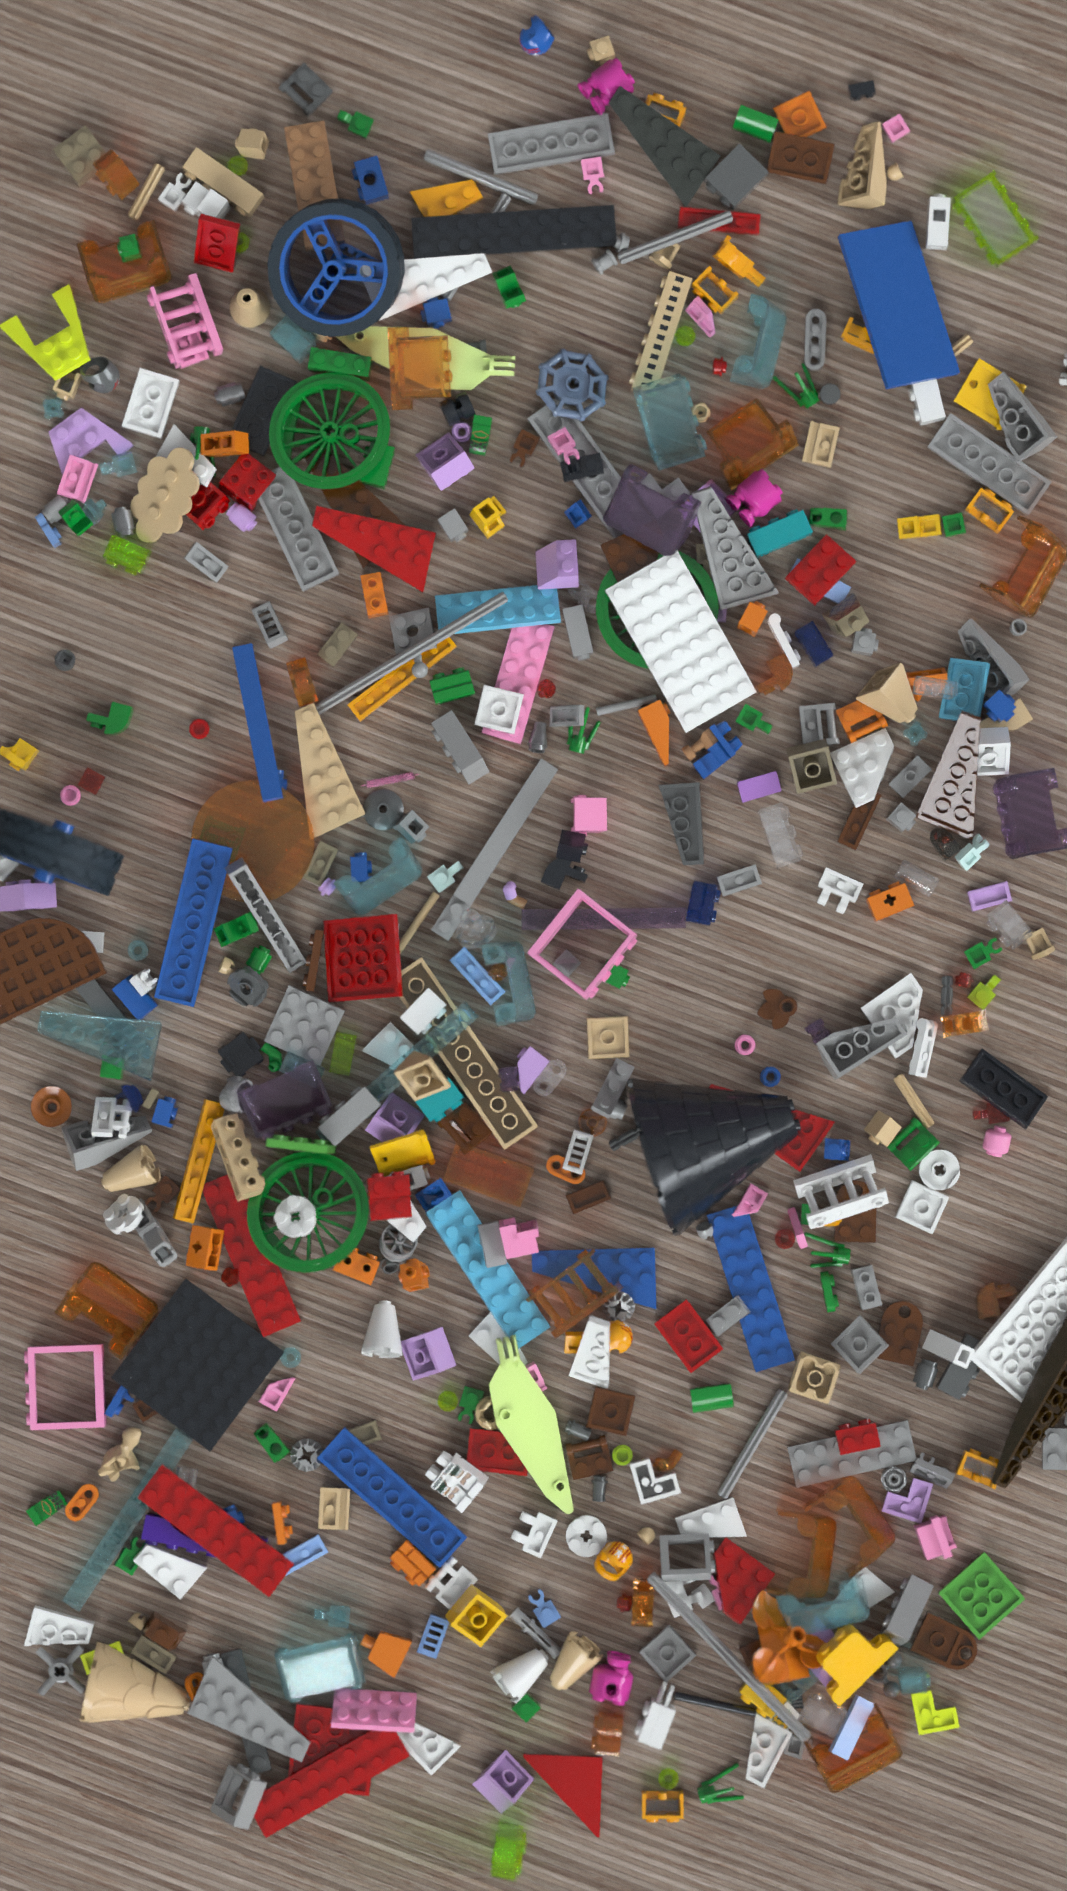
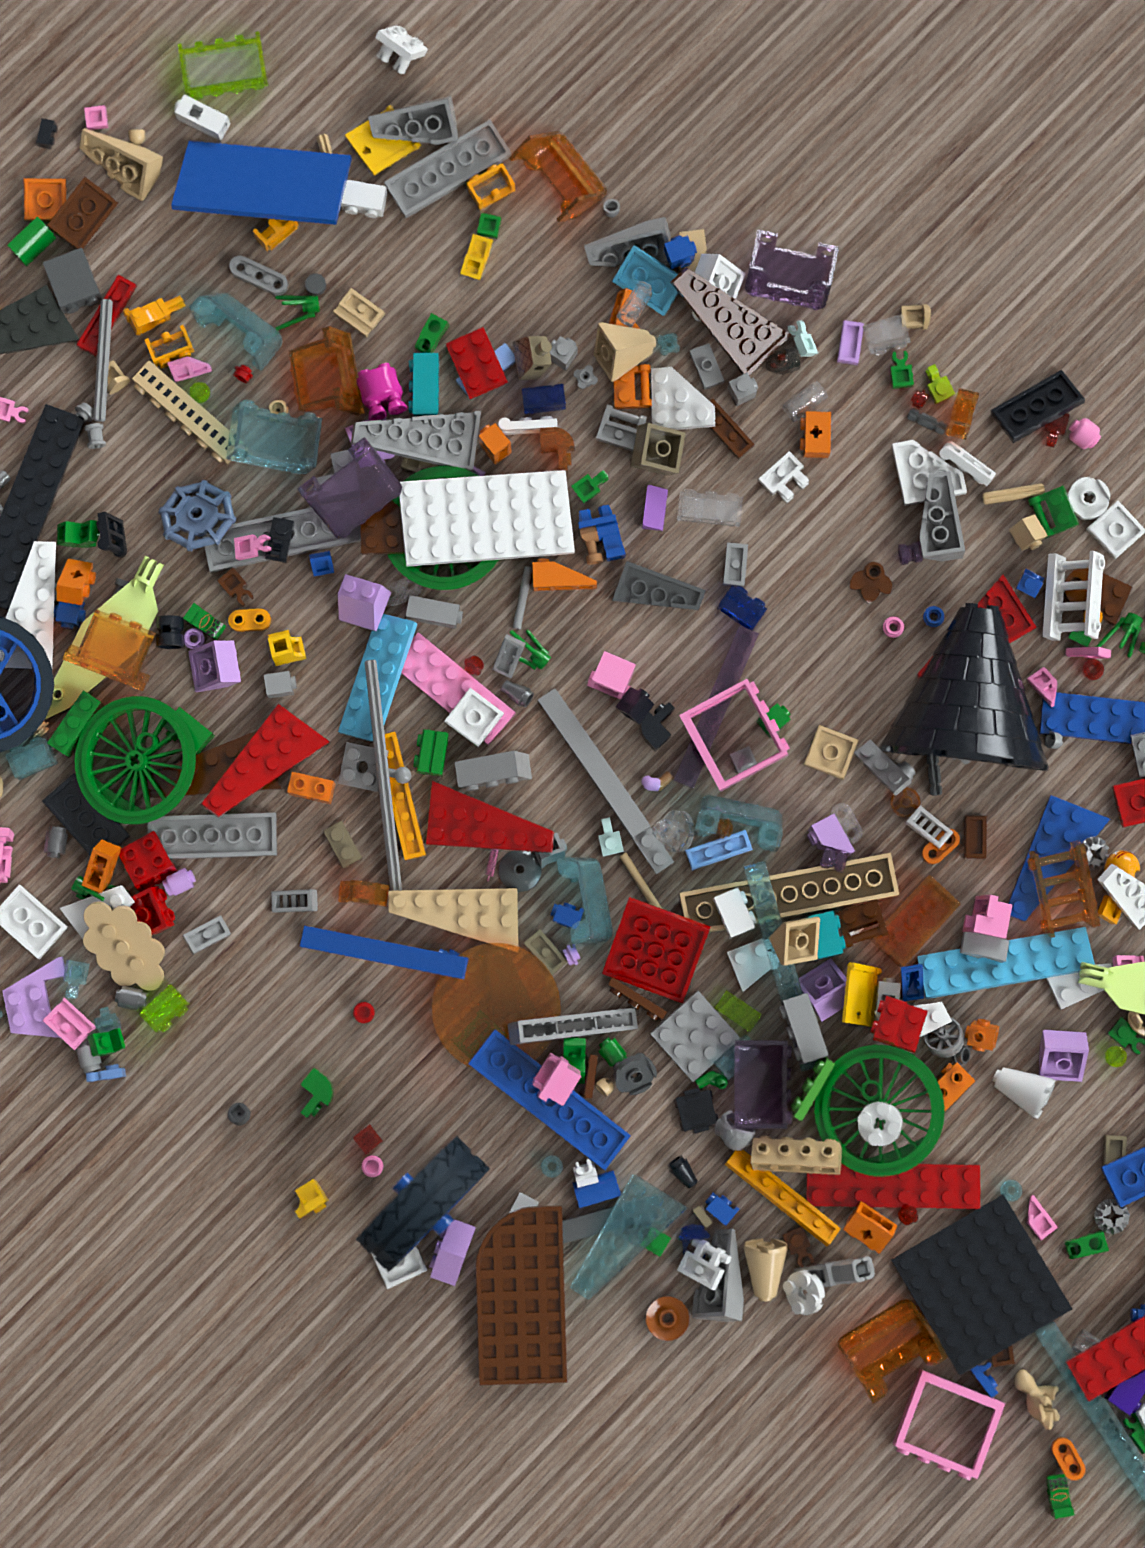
camera: 65 degrees left, 5 degrees down
(182, 1065) = (682, 1171): none -> black cone
(211, 920) = (556, 1079): none -> bright pink plate
(228, 950) = (590, 1078): none -> reddish brown tile
(404, 746) = (470, 823): none -> red wing
(464, 305) = (75, 582): none -> orange brick
(499, 473) = (249, 620): none -> light orange plate
(527, 316) = (111, 528): none -> black plate
(851, 666) = (583, 383): none -> light grey plate

